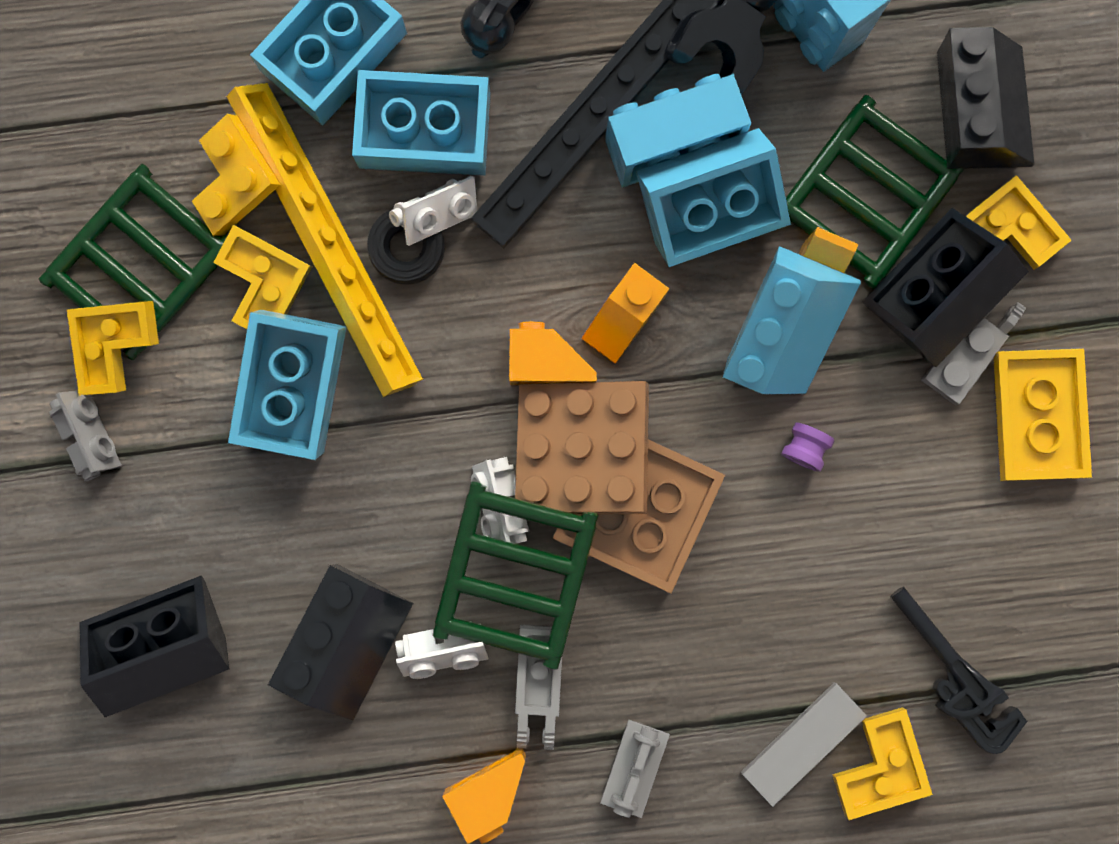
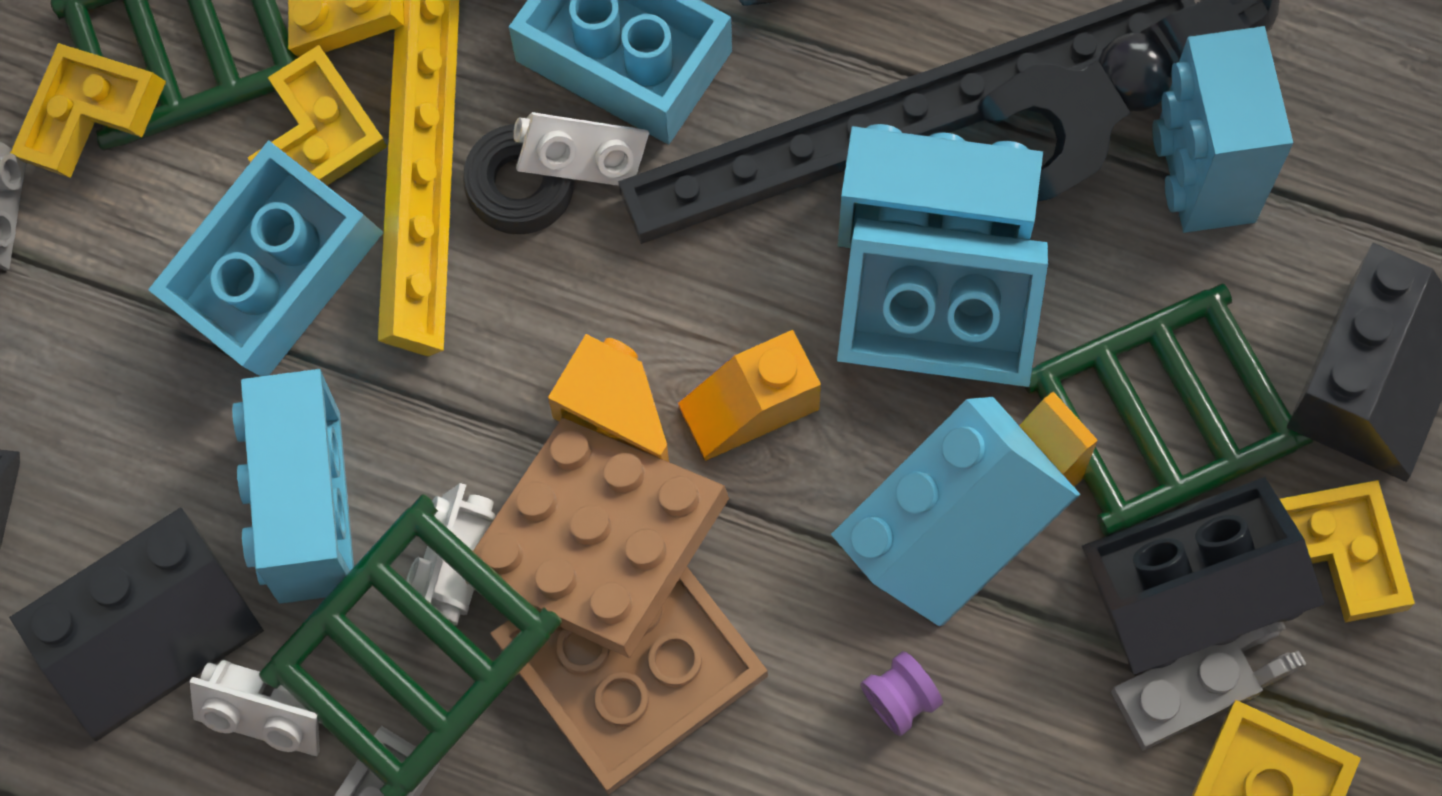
camera: 35 degrees right, 15 degrees down
(388, 514) = (293, 485): none -> medium azure brick

